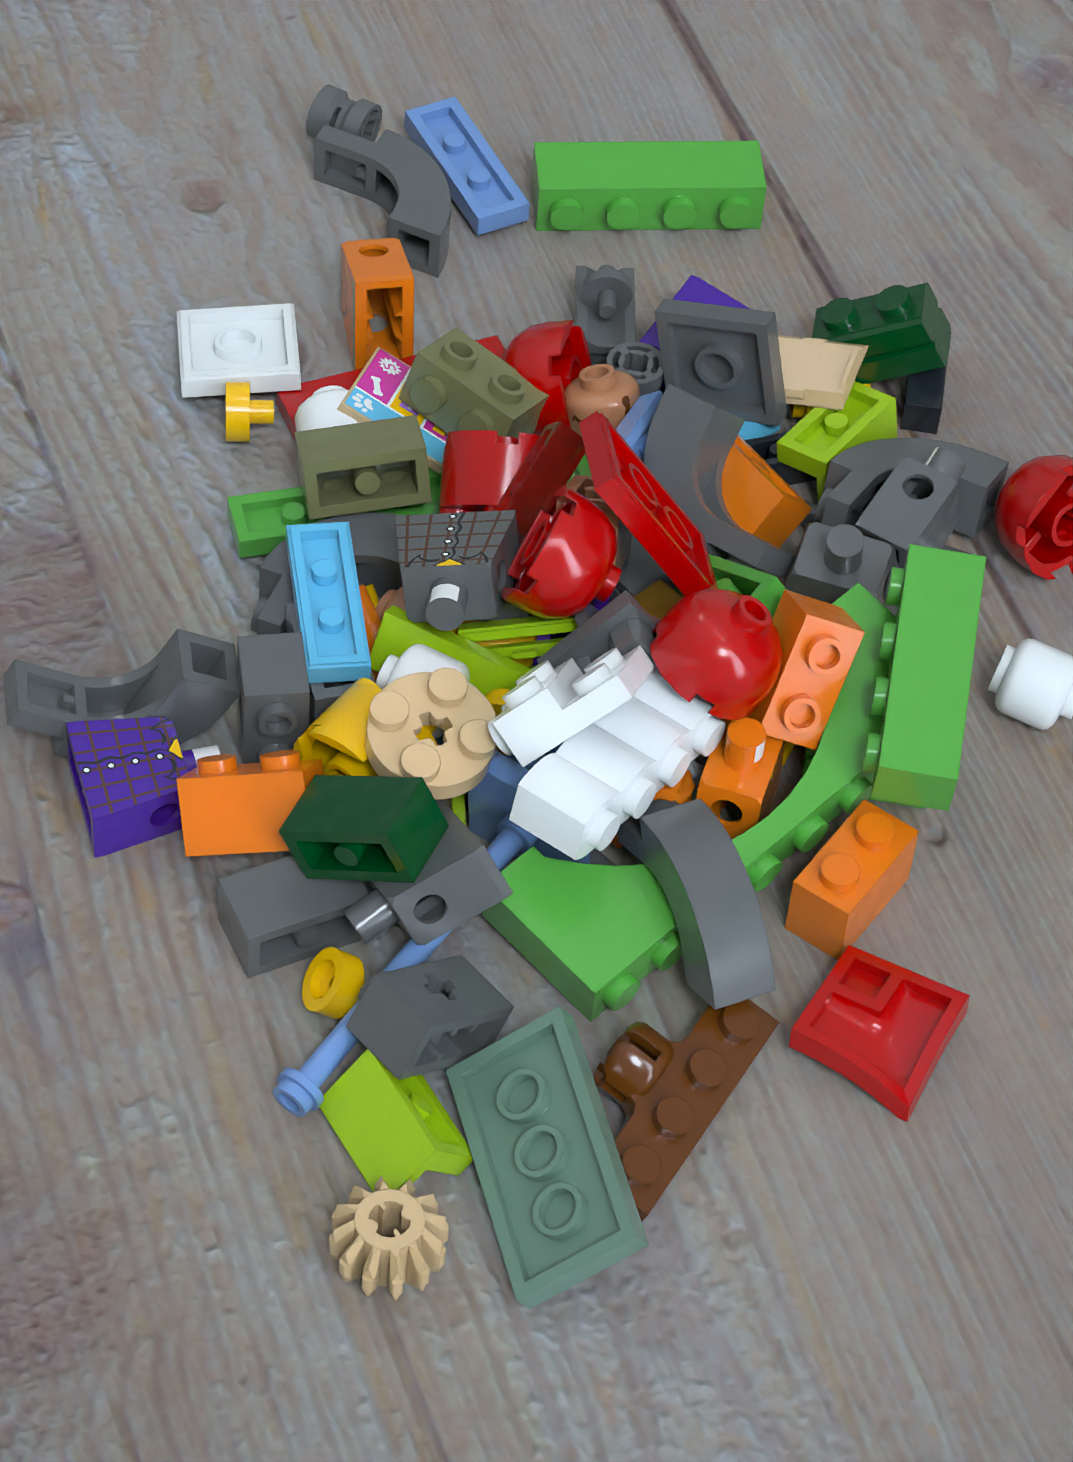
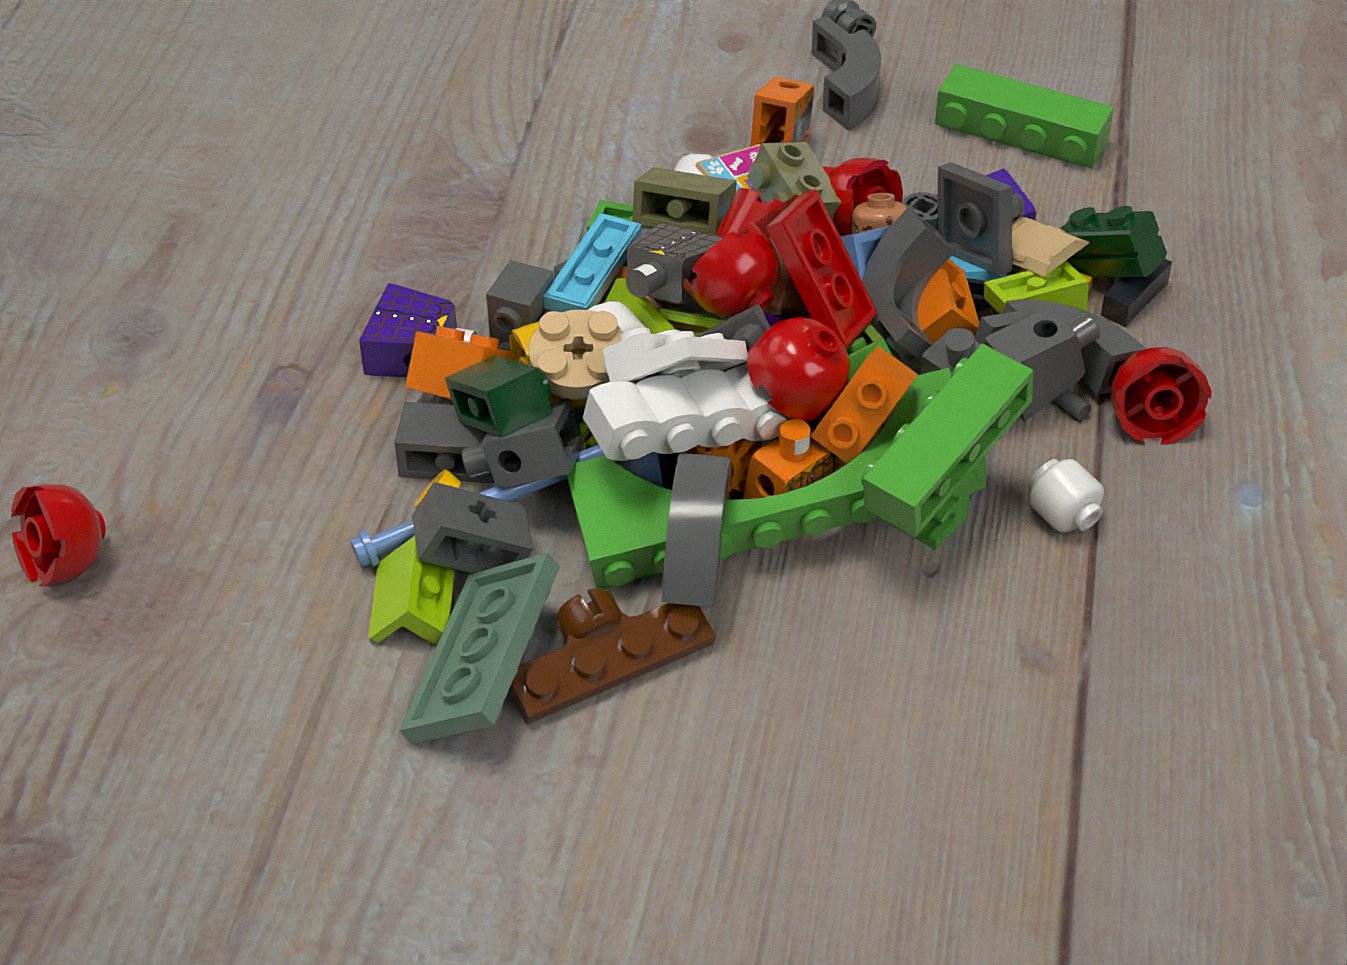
camera: 35 degrees right, 5 degrees down
(186, 682) = (464, 287): dark grey arch -> none
(238, 346) = (678, 125): white tile -> none
(243, 411) = (648, 154): yellow tile -> none
(388, 1238) = (346, 656): tan gear -> none
(472, 169) = (910, 71): medium blue plate -> none
(605, 308) = (923, 173): dark grey hips -> none
(851, 879) = (833, 565): orange brick -> none
(880, 1027) = (783, 667): red plate -> none

